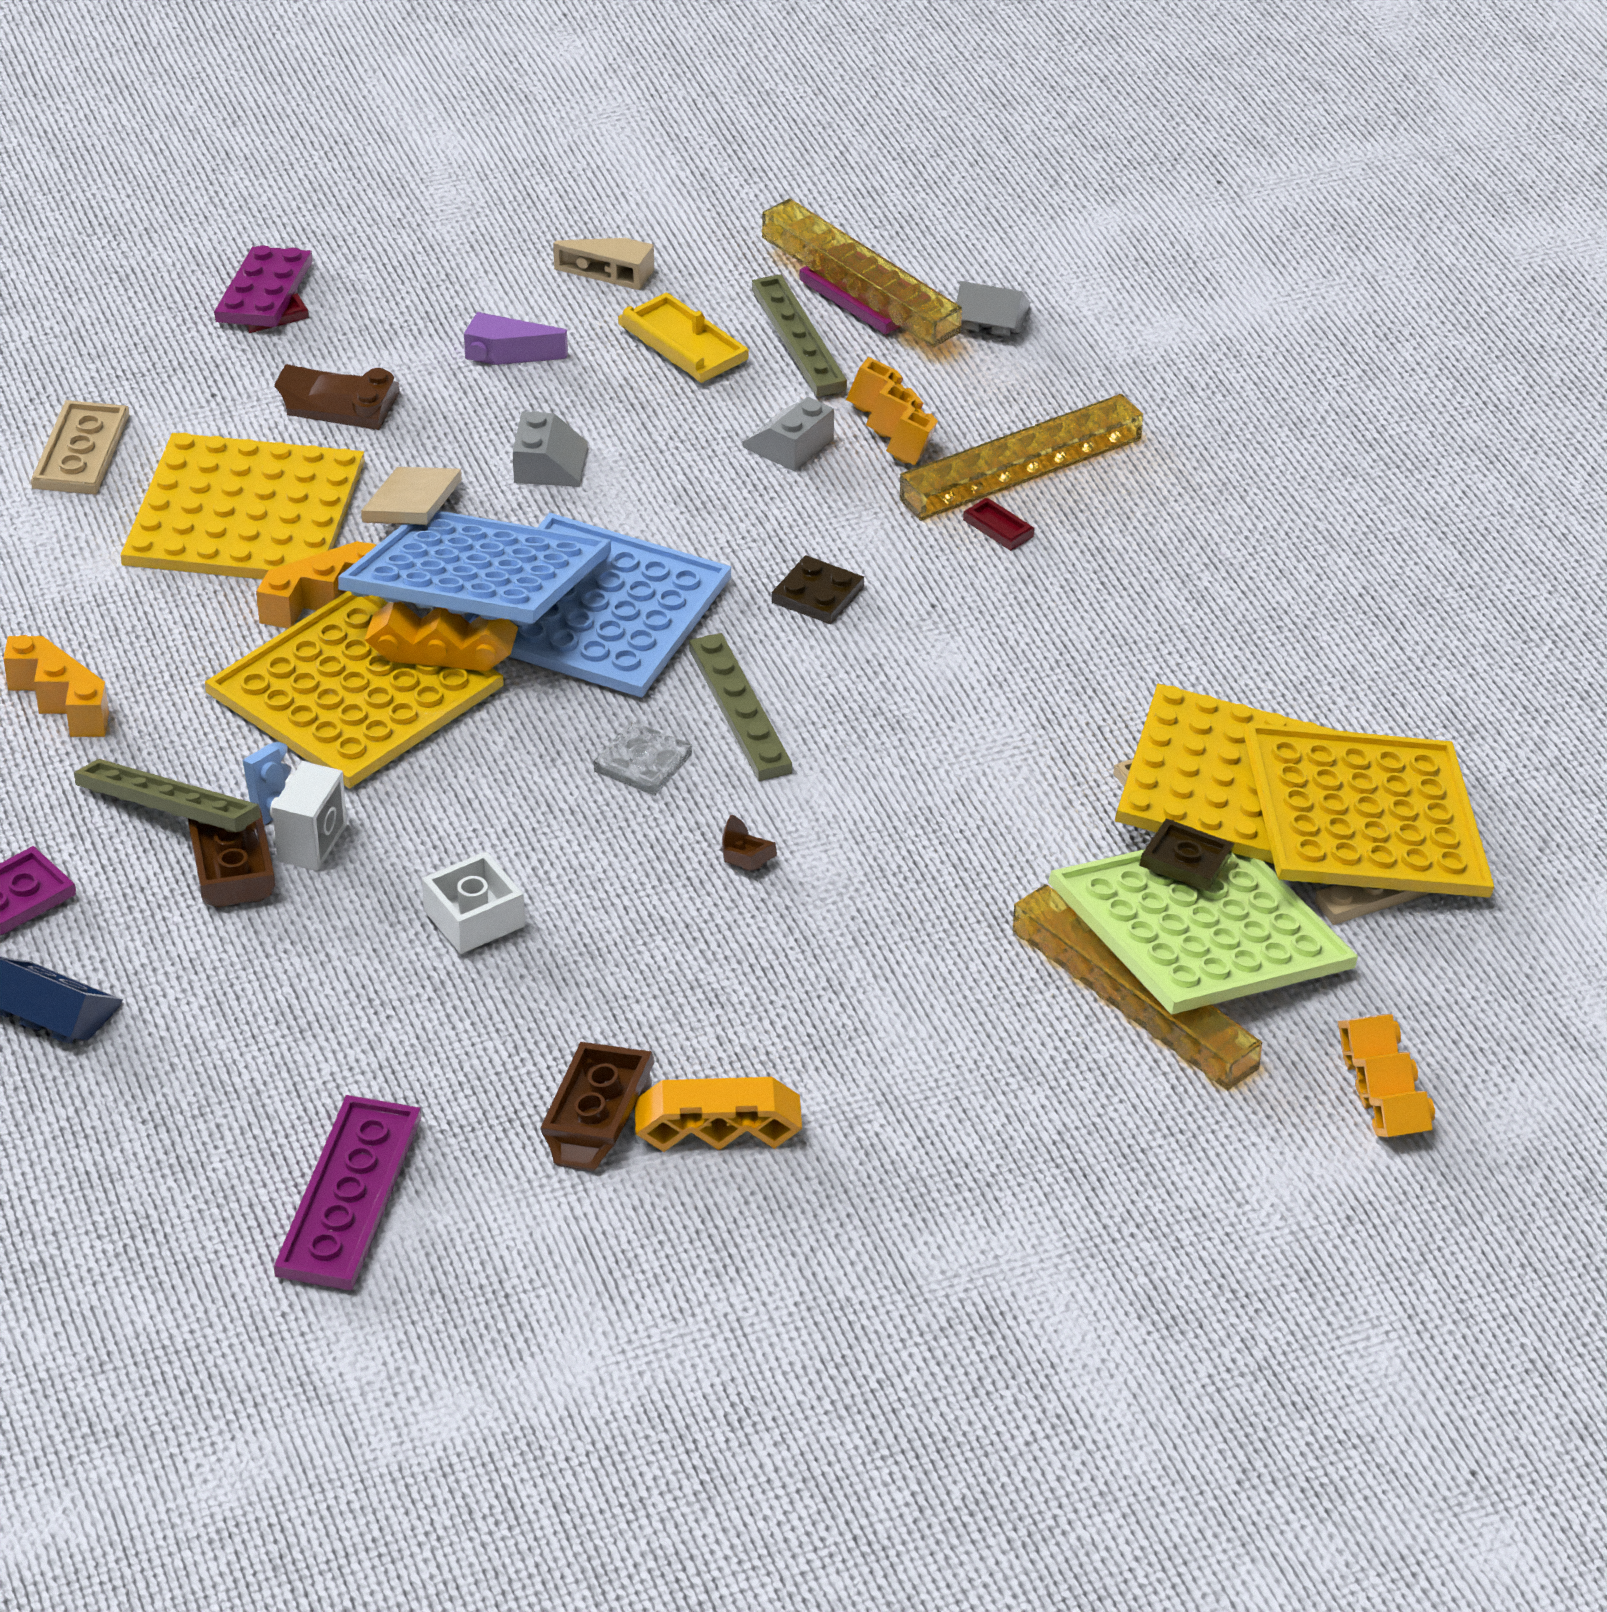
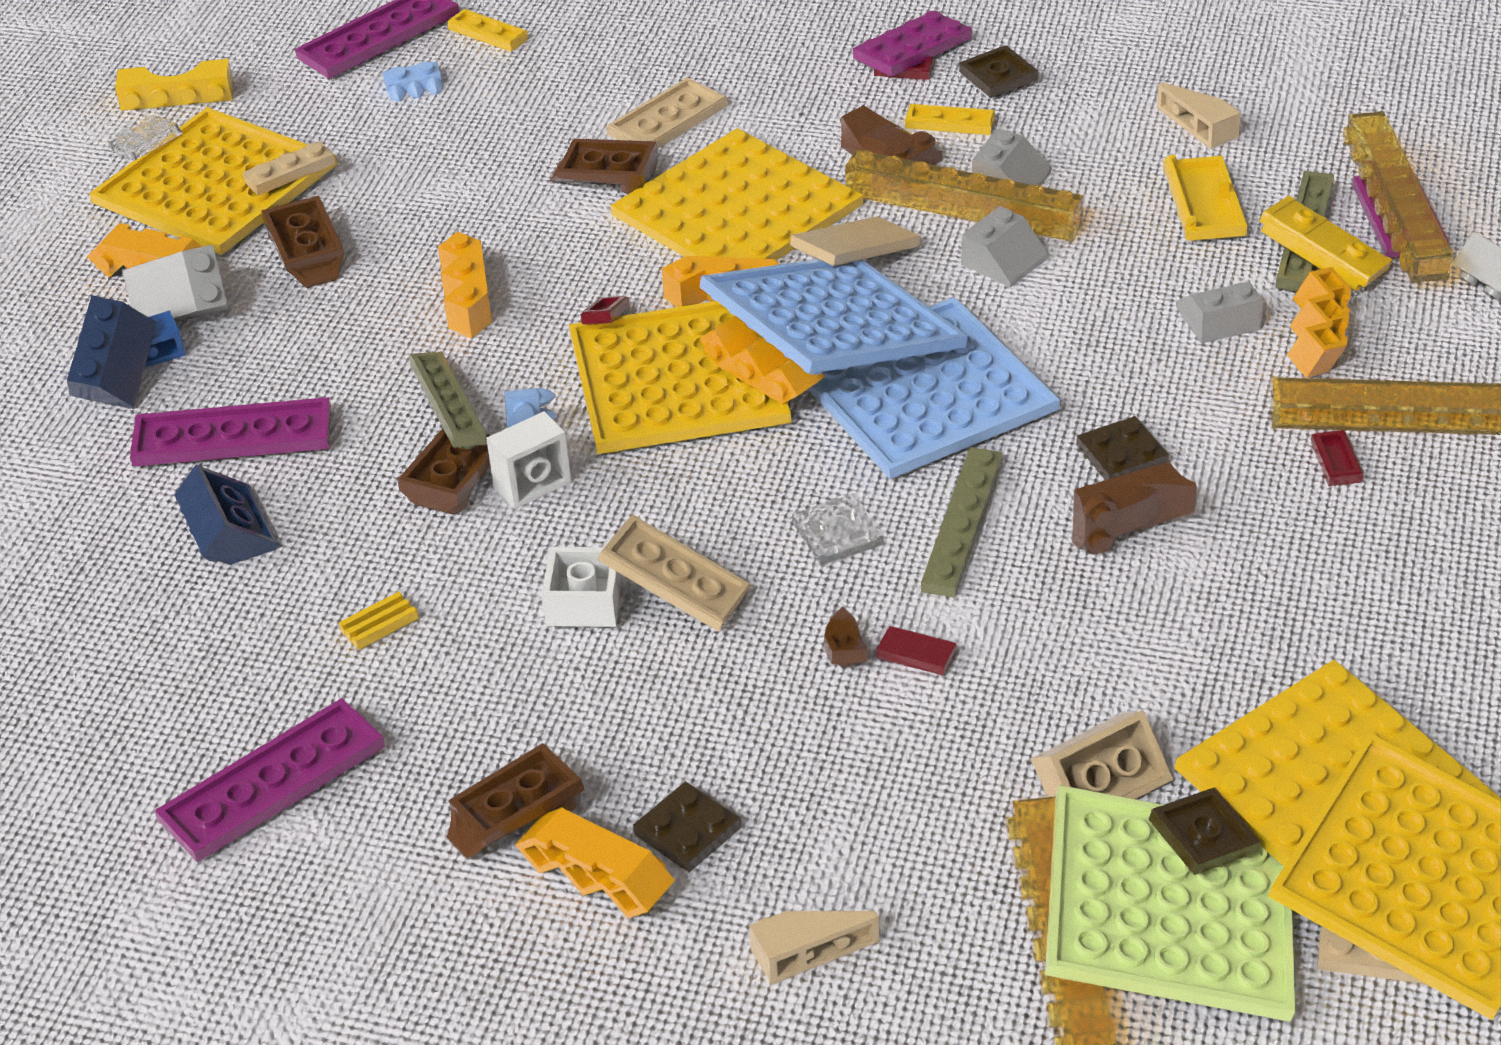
camera: 40 degrees right, 0 degrees up
(76, 514) = (608, 162): none -> reddish brown slope
(228, 654) = (605, 310): none -> dark red tile
(306, 999) = (375, 620): none -> yellow tile
(371, 349) = (950, 119): none -> yellow tile
(376, 285) = (998, 71): none -> dark brown plate
(460, 414) = (962, 193): none -> clear yellow brick
(480, 374) = (1010, 157): none -> light grey slope
(510, 341) = (1063, 150): medium lavender slope -> none
(548, 852) = (674, 572): none -> tan tile
(755, 1050) = (687, 826): none -> dark brown plate
(806, 828) = (916, 650): none -> dark red tile
(831, 339) = (1323, 243): none -> yellow container
(882, 629) = (1128, 505): none -> reddish brown slope
(944, 1088) = (807, 939): none -> tan slope
(1046, 838) = (1108, 759): none -> tan slope

